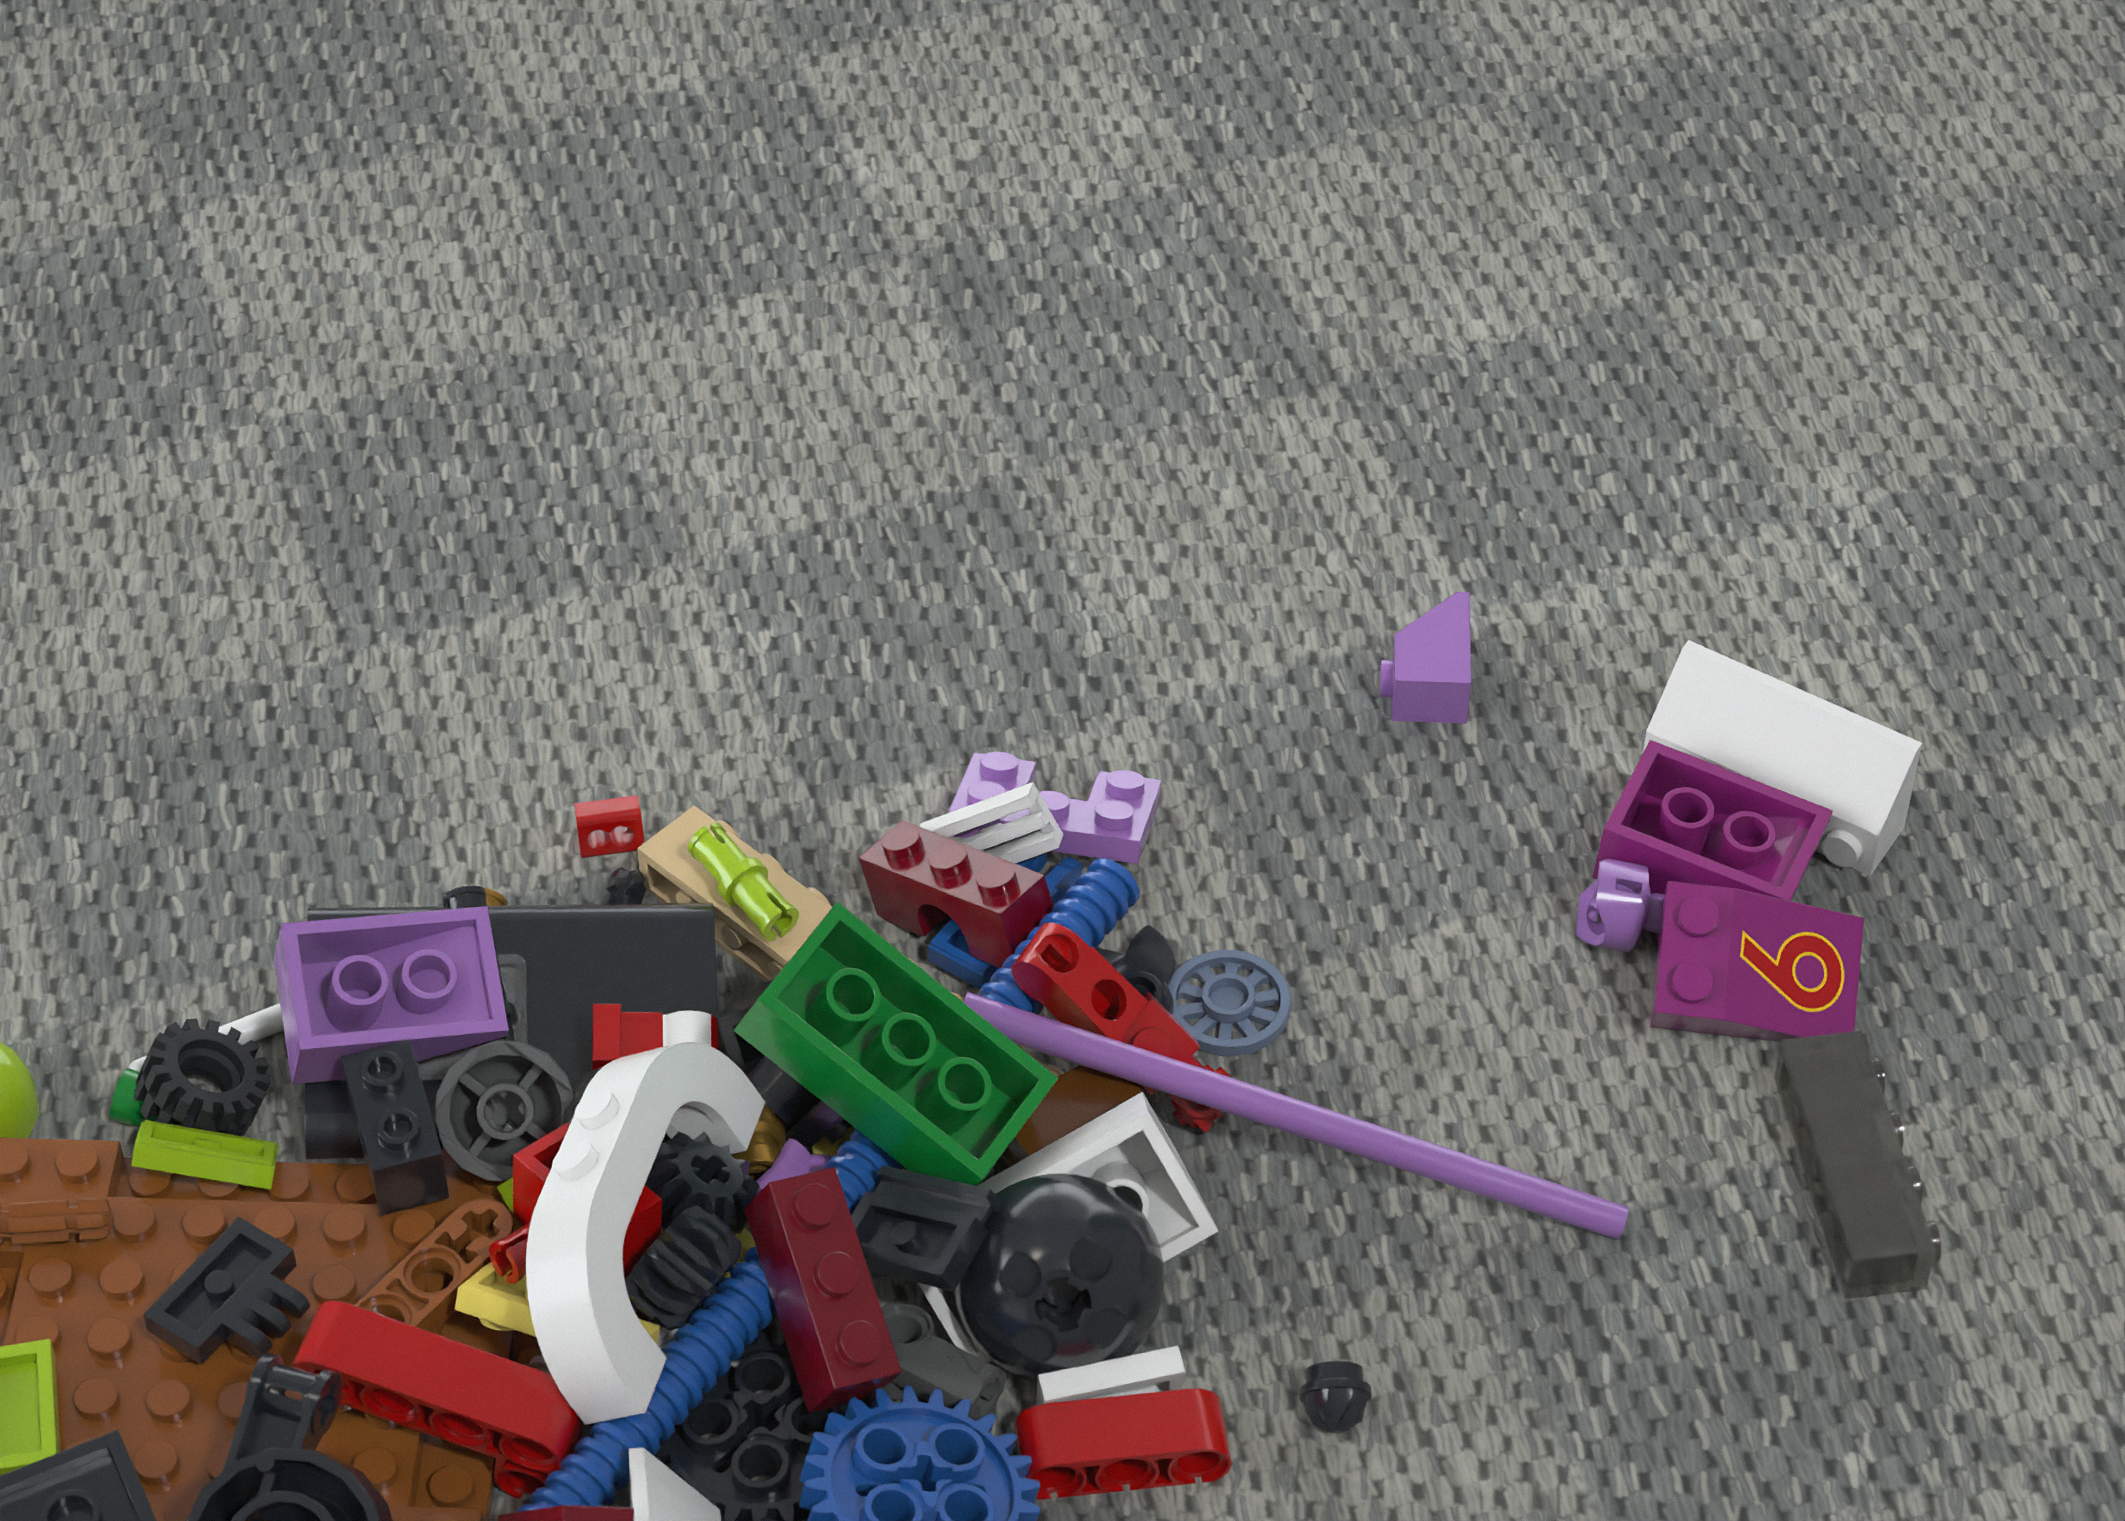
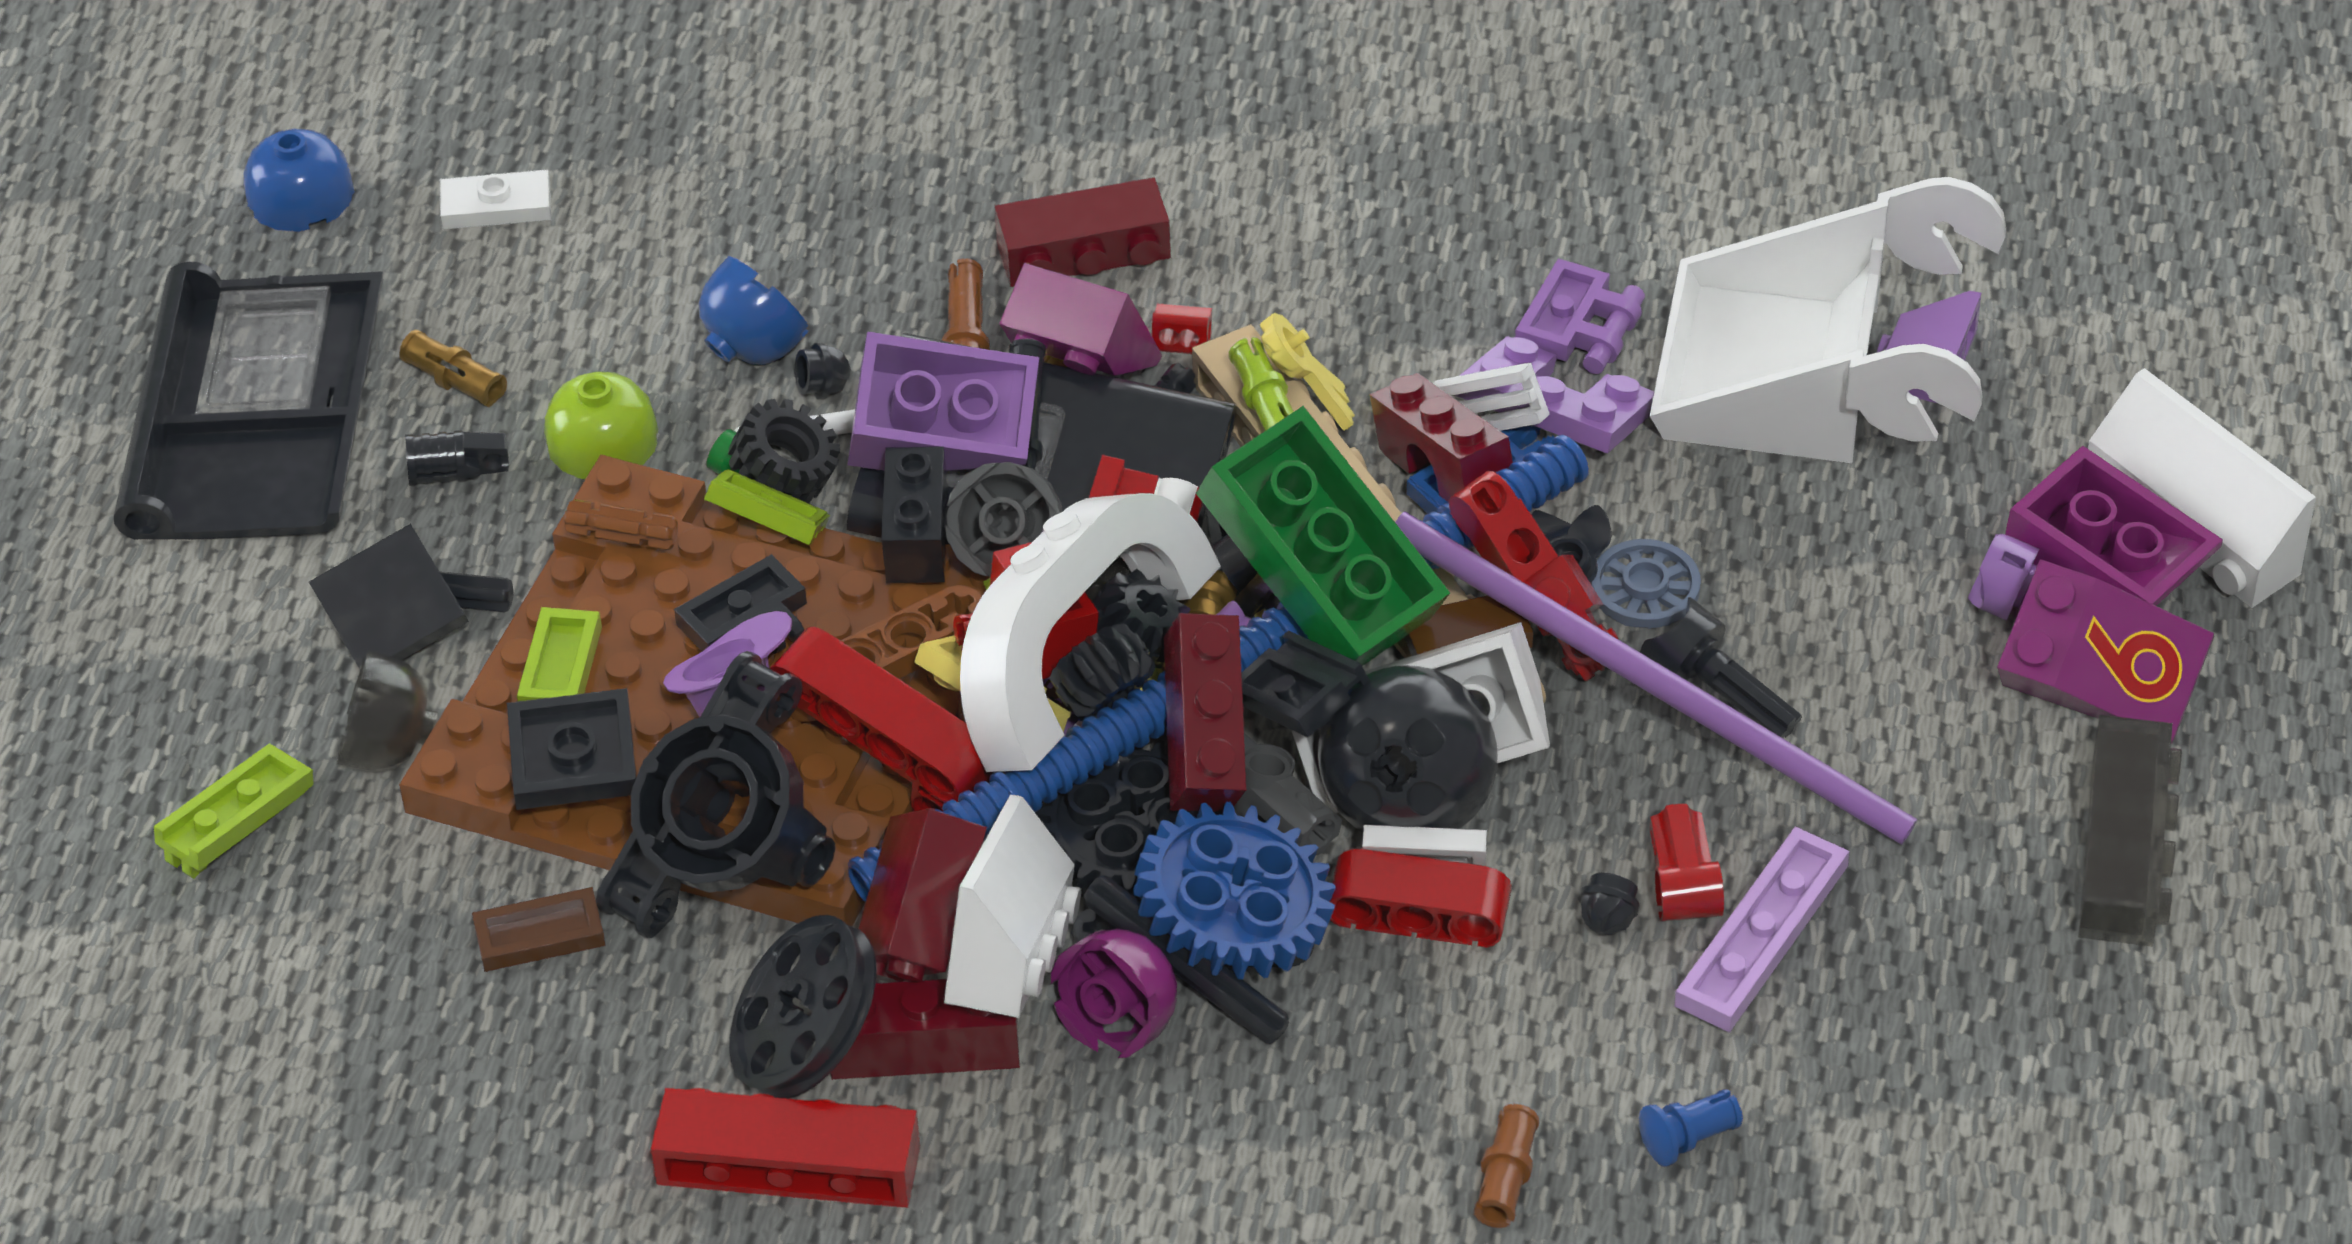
camera: 20 degrees right, 0 degrees up
(104, 927) = (747, 317): none -> blue cylinder
(209, 971) = (821, 370): none -> black plate
(217, 1379) = (703, 672): none -> medium lavender piece
(354, 858) = (966, 305): none -> dark orange pin
(459, 739) = (1085, 230): none -> dark red brick
(507, 849) = (1079, 323): none -> slope
(759, 836) = (1291, 355): none -> light yellow piece
(1026, 705) = (1563, 312): none -> medium lavender plate
(1272, 684) = (1778, 330): none -> white piece
(1319, 1072) = (1693, 650): none -> black piece
(1405, 1338) = (1685, 876): none -> red piece
(1512, 1382) = (1761, 929): none -> lavender plate

